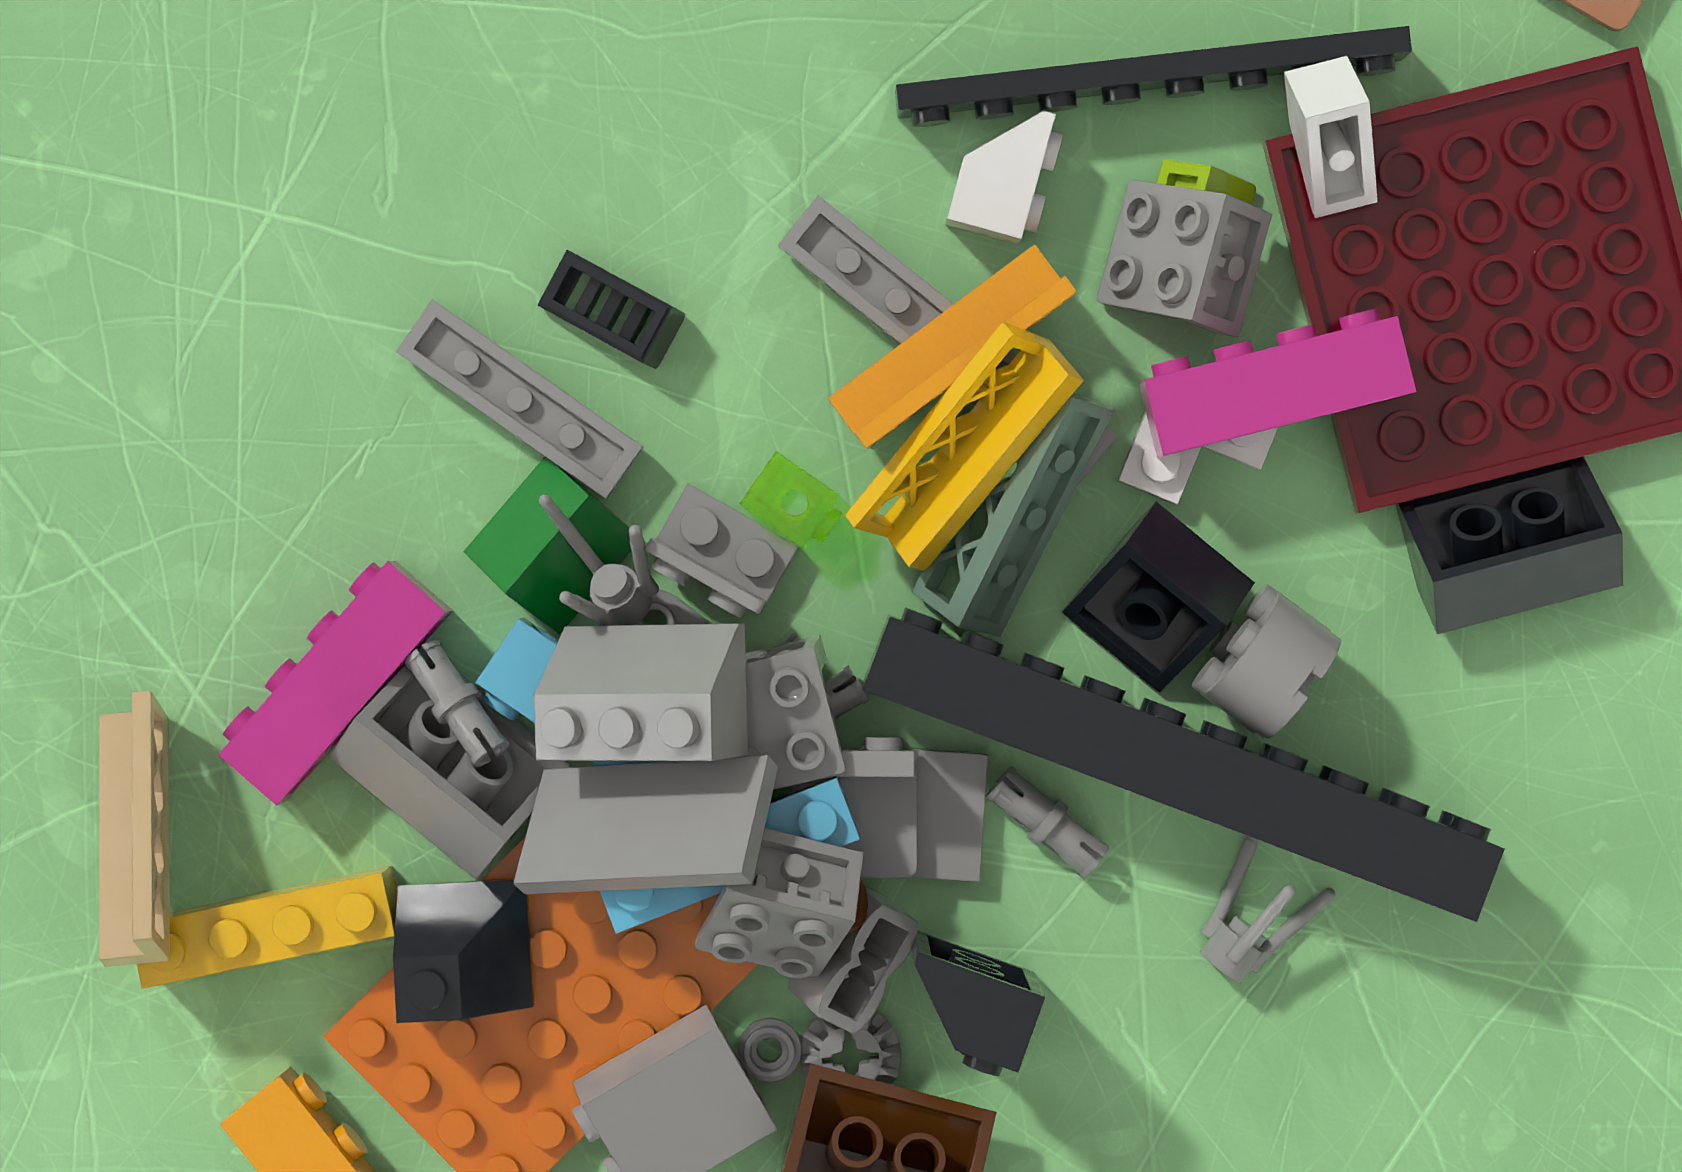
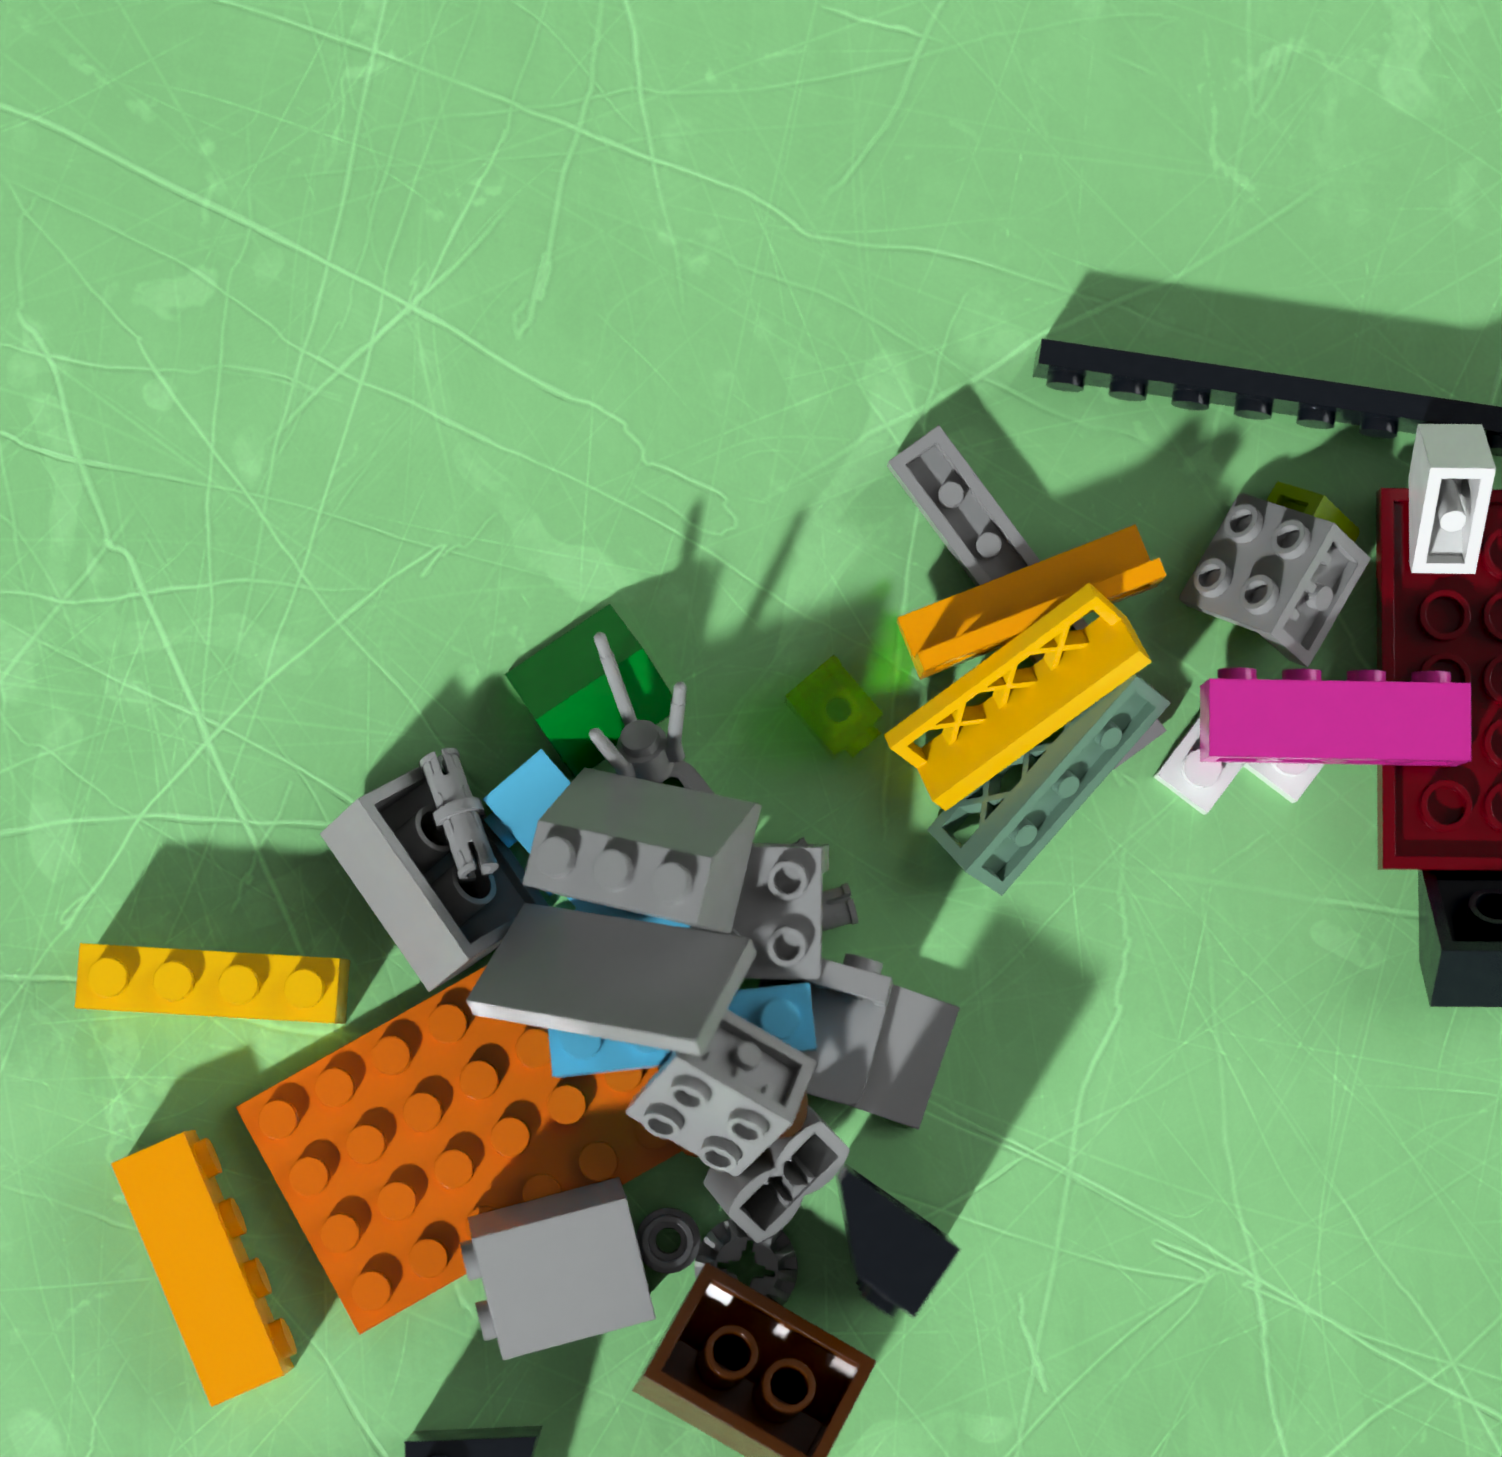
camera: 10 degrees right, 5 degrees down
(134, 834) = (111, 857): tan fence -> none
(334, 681) = (359, 752): dark pink brick -> none
(461, 950) = (396, 1056): black slope -> none
(519, 399) = (600, 542): light grey plate -> none
(658, 333) = (747, 518): black slope -> none
(721, 550) = (755, 738): light grey bracket -> none
(1000, 179) = (1115, 457): white slope -> none
(1047, 822) = (1000, 1089): light grey pin -> none
(1159, 597) = (1166, 898): black slope -> none
(1184, 768) = (1158, 1073): black brick -> none
(1241, 946) = (1156, 1262): light grey plant -> none
(1267, 663) = (1258, 988): light grey brick -> none

